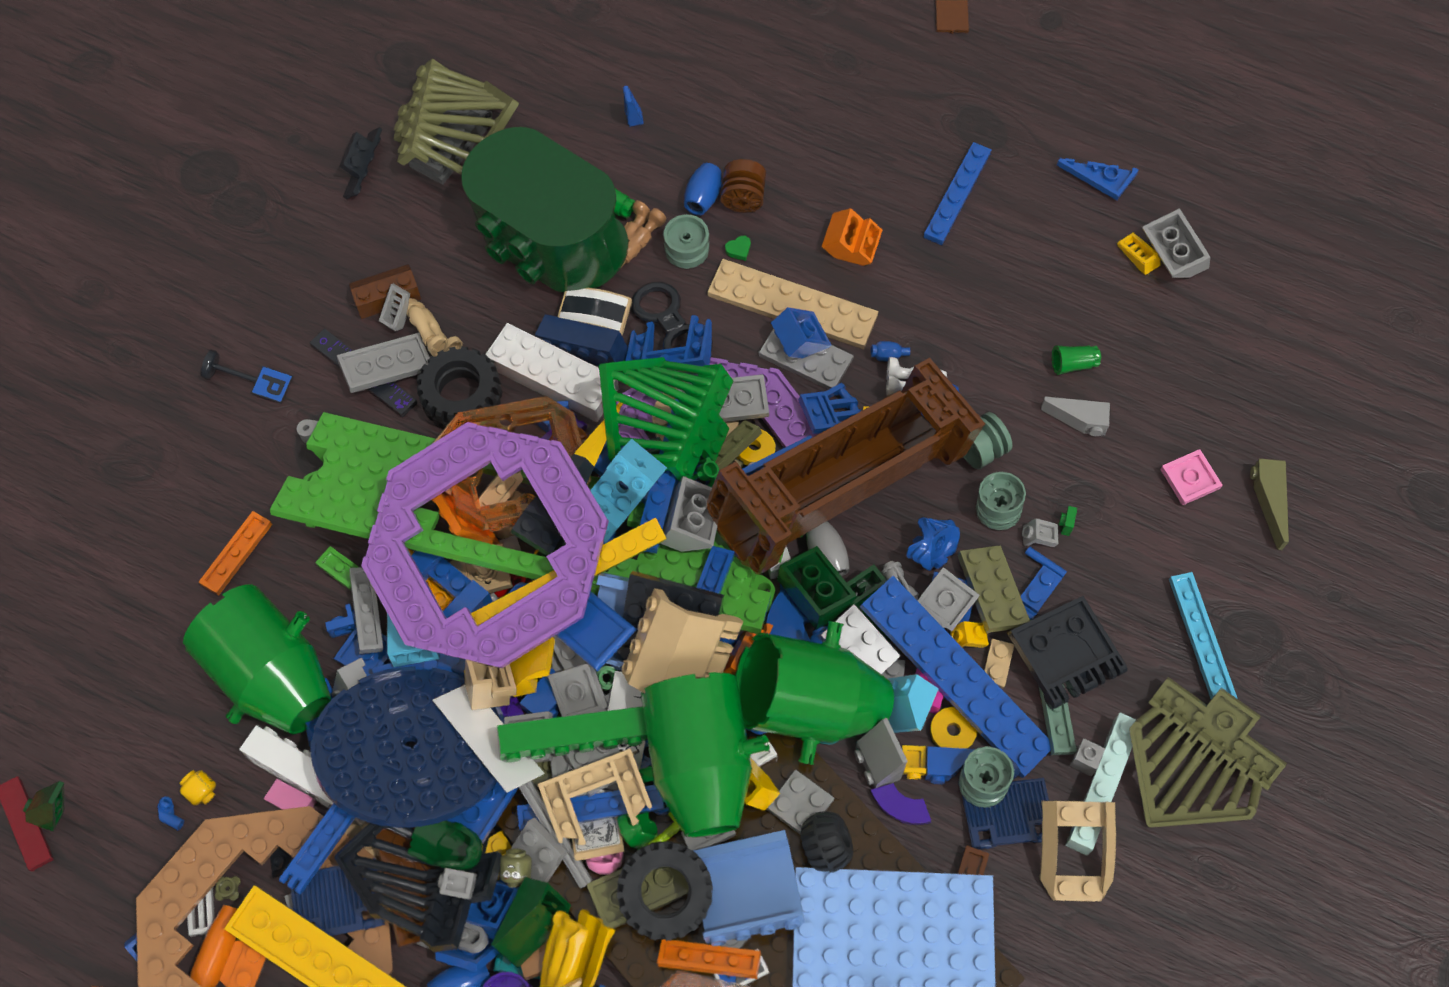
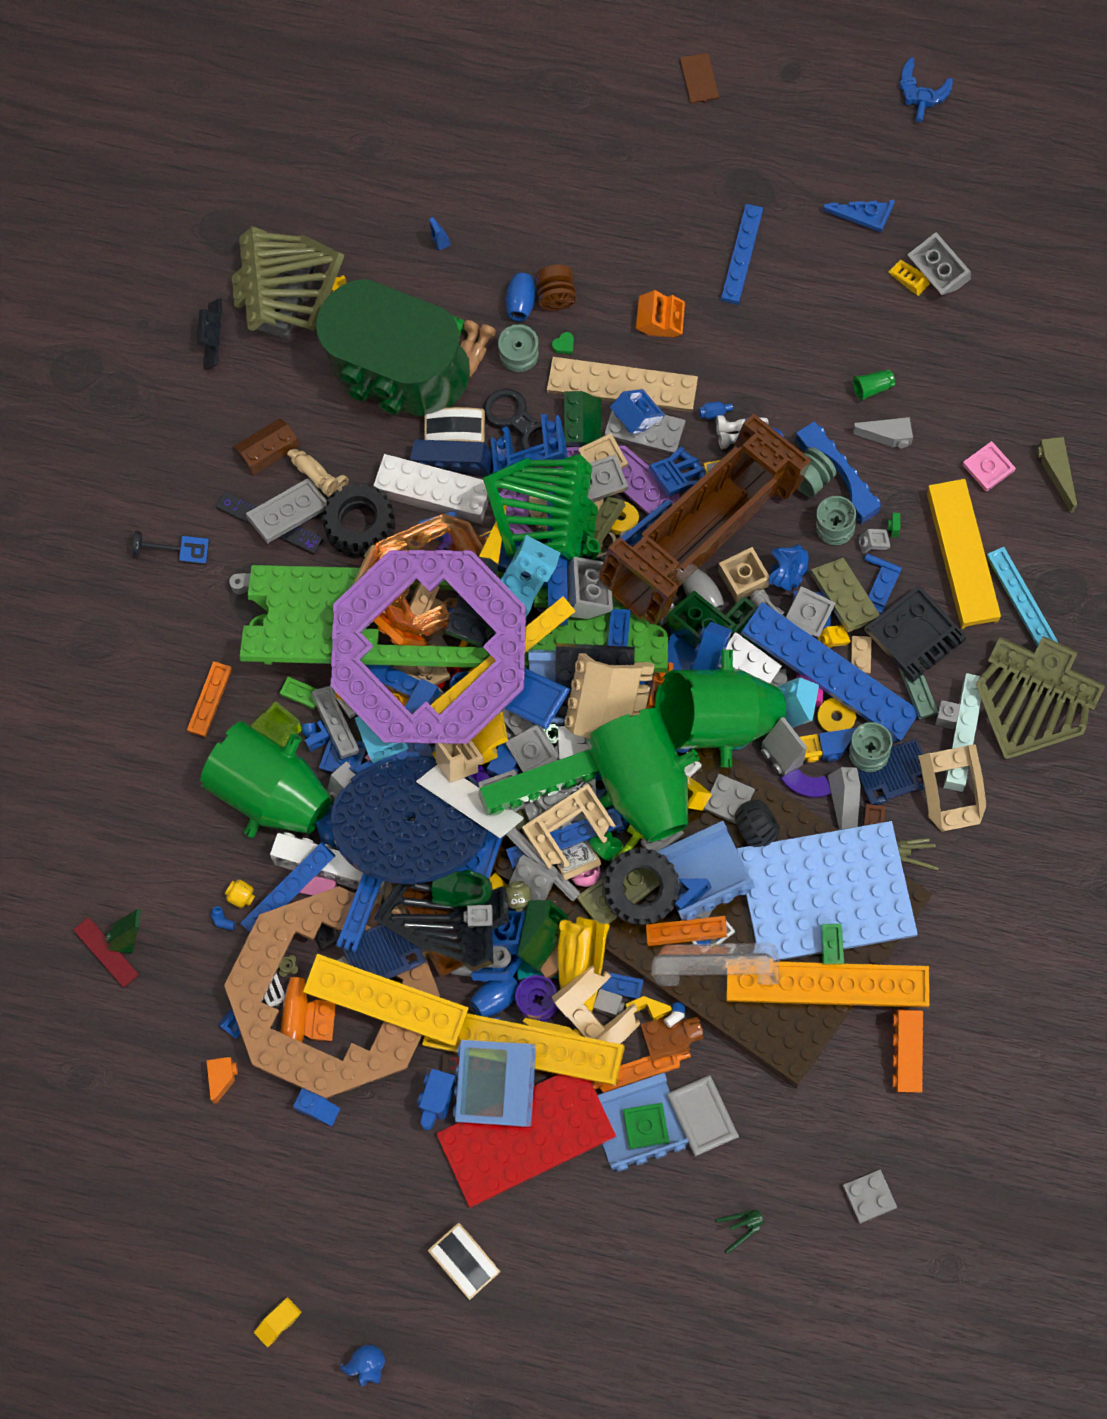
camera: 10 degrees left, 5 degrees up
(258, 789) = (292, 883): none -> blue plate
(299, 595) = (277, 724): none -> clear neon green plate
(336, 610) = (308, 728): none -> blue hinge
(395, 323) = (279, 472): light grey slope -> none
(732, 910) = (695, 890): none -> blue slope
(737, 331) = (581, 418): none -> dark green slope
(752, 365) = (601, 449): none -> tan plate
(823, 607) = (709, 651): none -> blue brick
(880, 539) = (743, 574): none -> tan brick
(943, 831) = (846, 796): none -> light grey slope
(1002, 912) = (905, 847): none -> olive plant
(1034, 475) = (859, 492): none -> blue arch
(1142, 571) = (963, 553): none -> yellow tile
(1190, 70) = (921, 96): none -> blue bar

